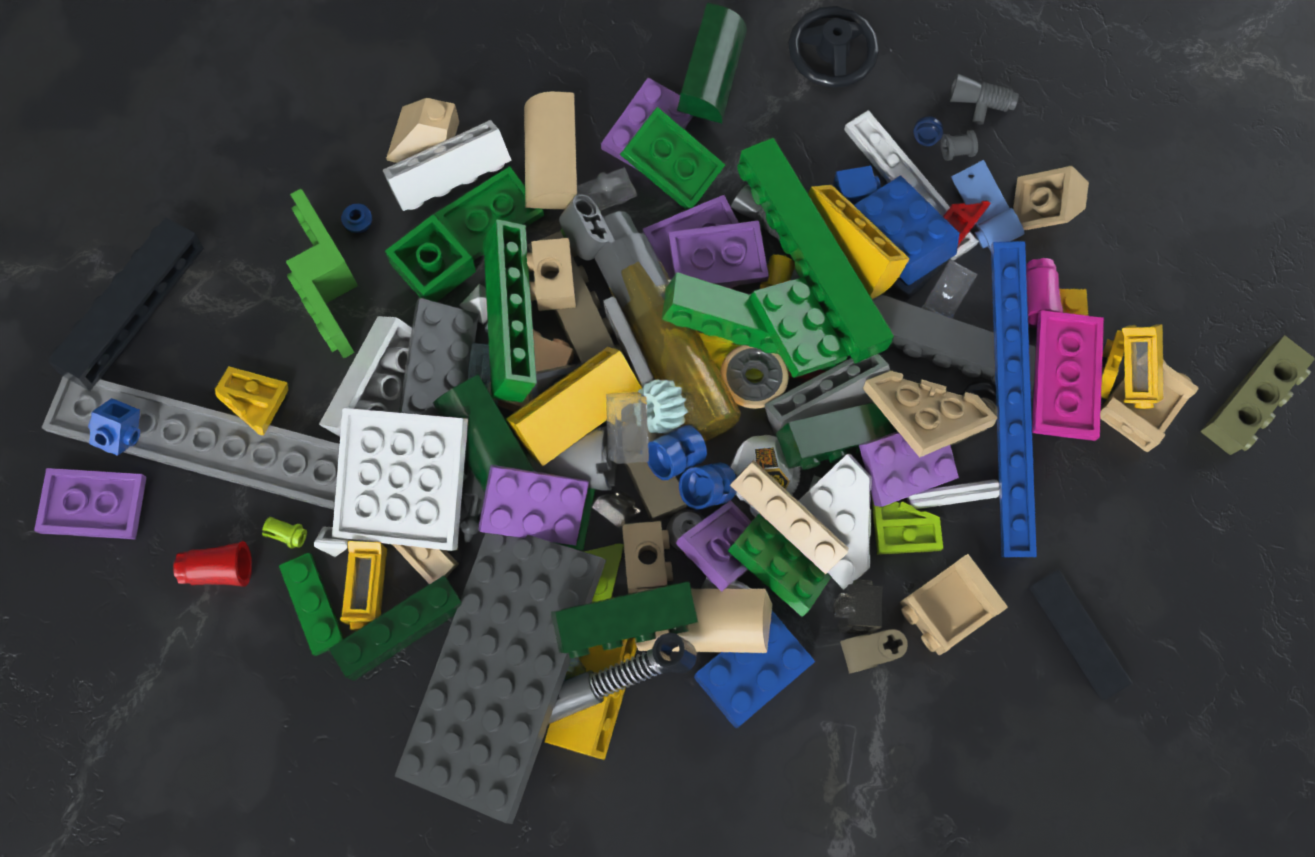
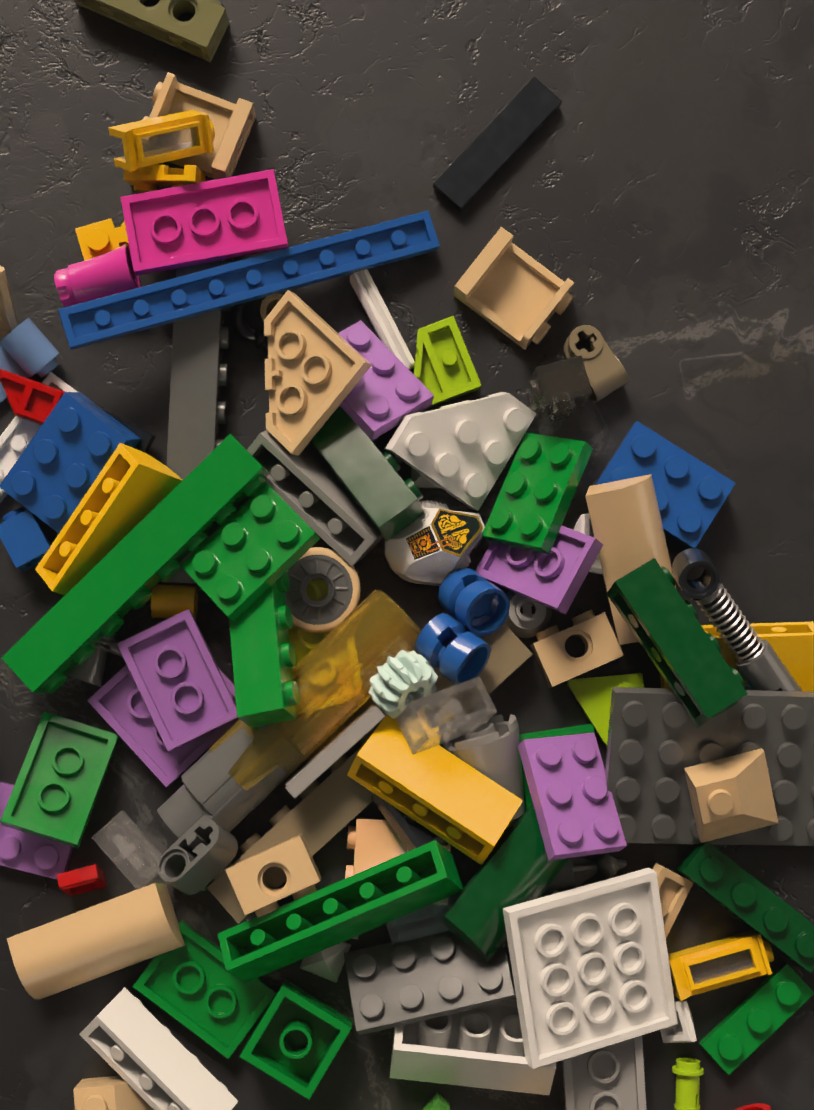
camera: 110 degrees left, 10 degrees up
(488, 628) = (731, 795): none -> tan slope
(596, 155) = (82, 880): none -> red tile
(617, 508) = (535, 699): clear smoke plate -> none
(789, 517) = (481, 497): tan plate -> none
(950, 290) = (131, 390): clear plate -> none

